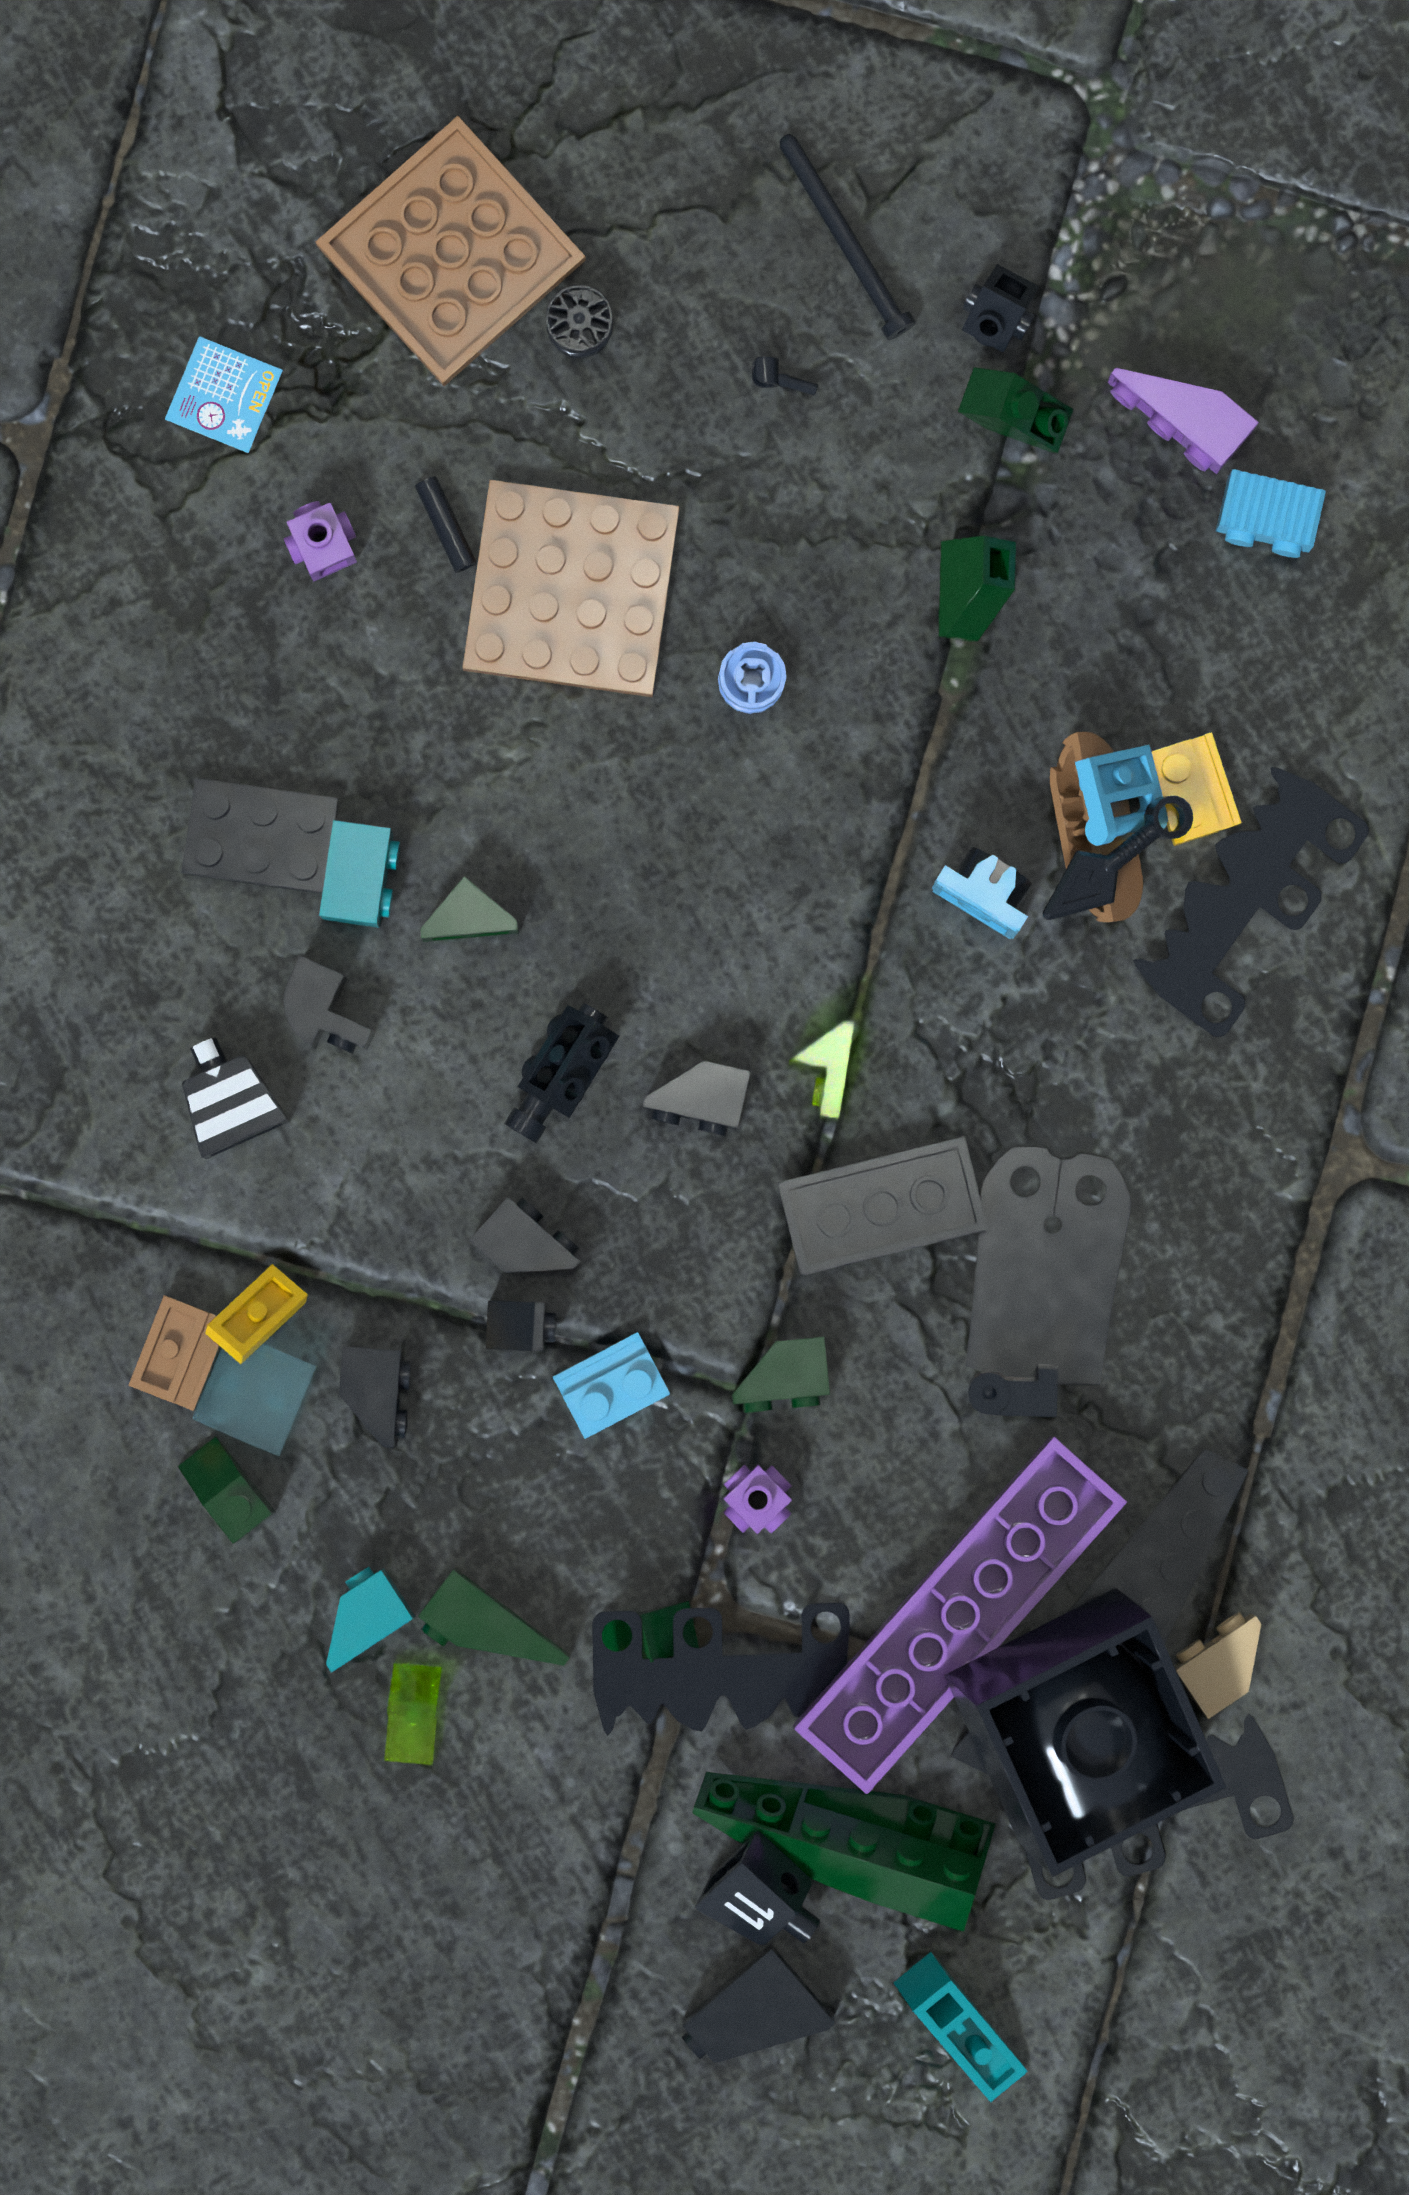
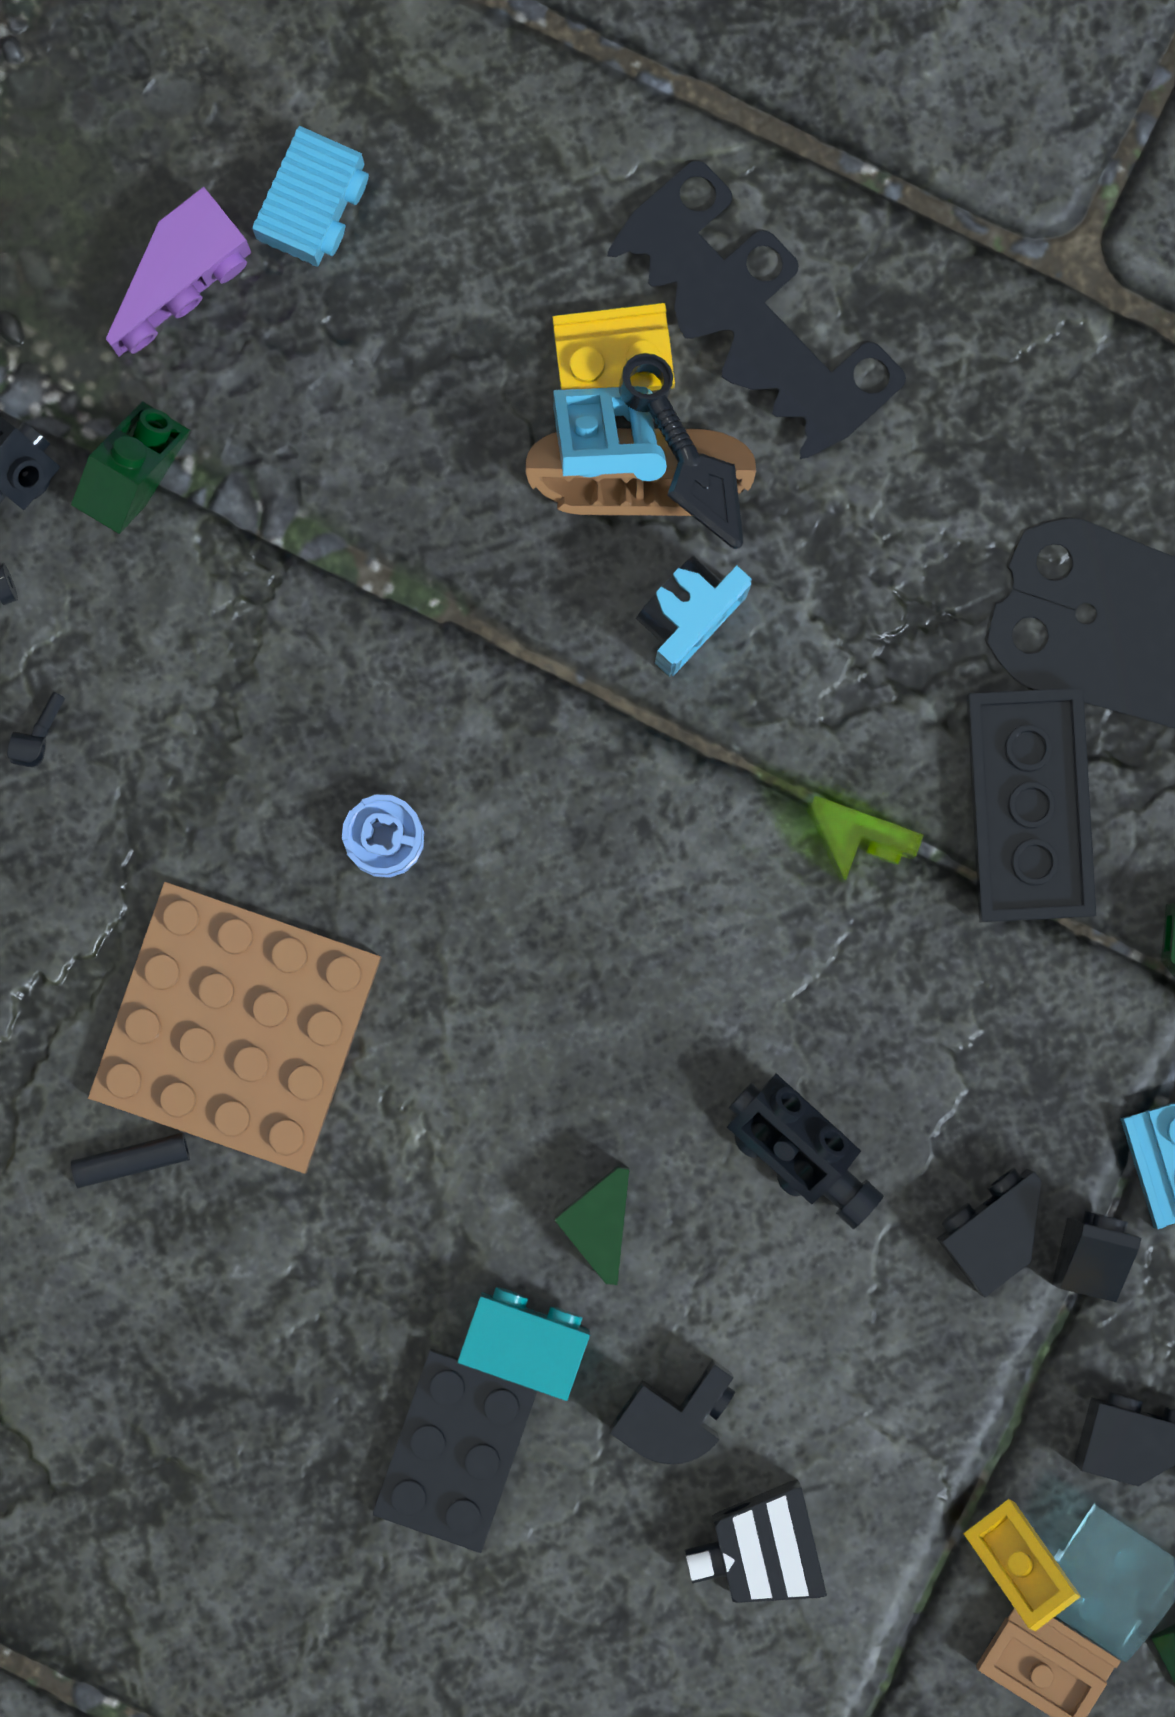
camera: 80 degrees left, 0 degrees up
(327, 555) = (140, 1308): medium lavender brick -> none
(703, 1094) = (861, 988): slope -> none
(974, 584) = (326, 555): dark green slope -> none

